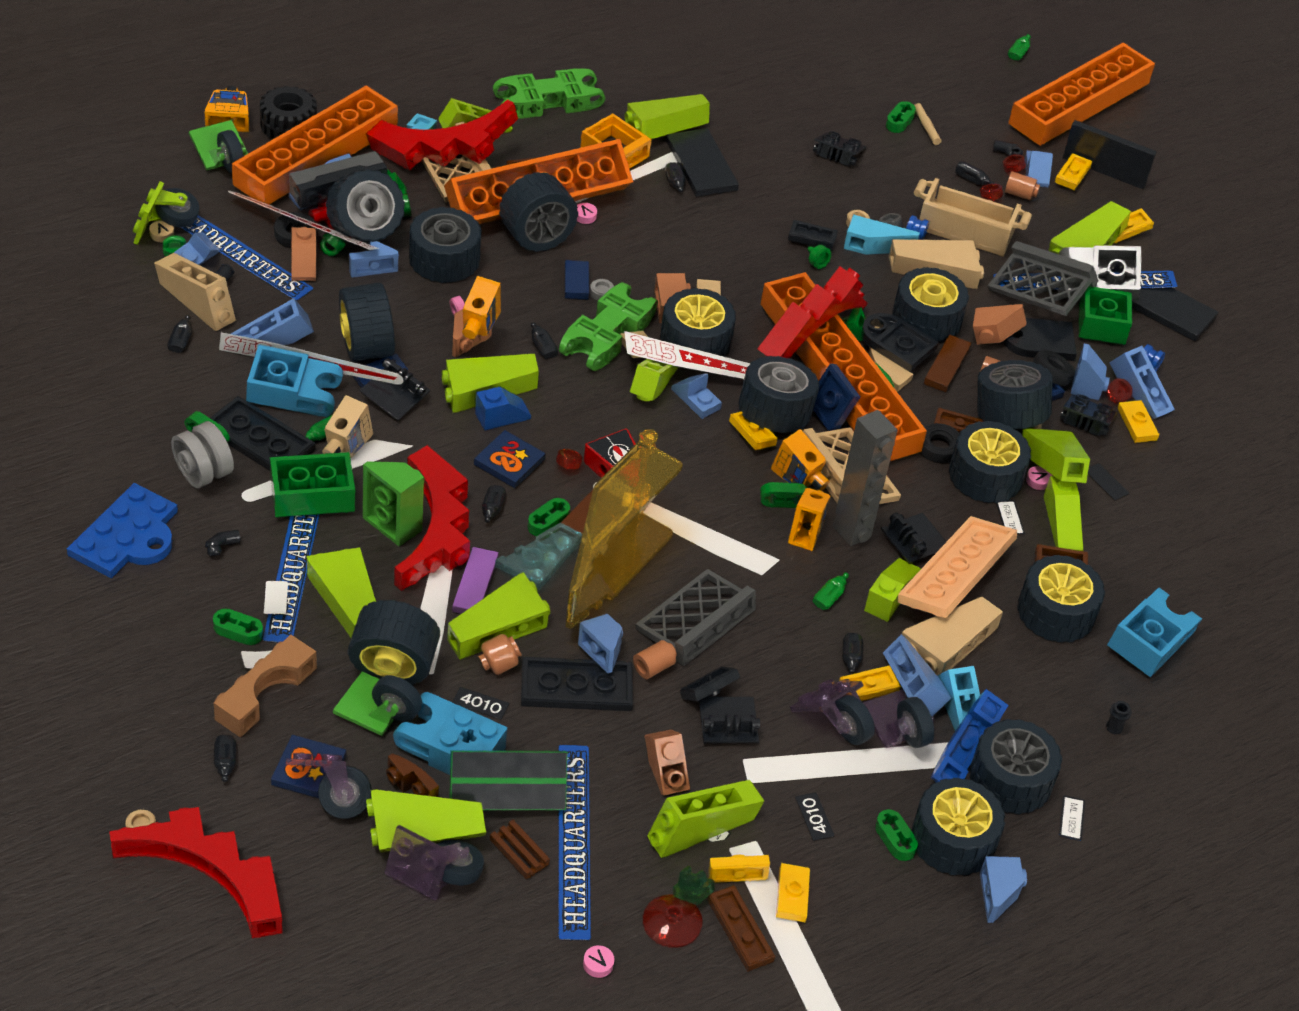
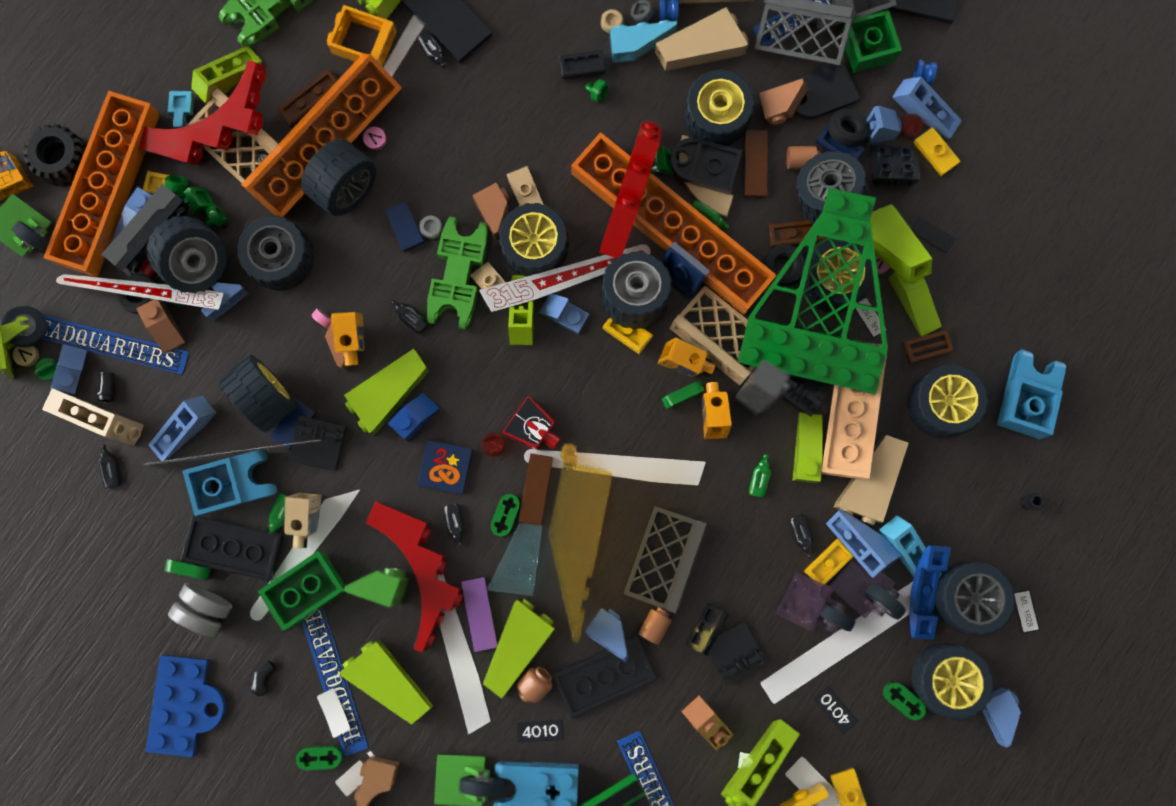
camera: 15 degrees left, 35 degrees up
(394, 641) = (453, 735): black wheel -> none
(945, 504) = (817, 353): none -> green wing

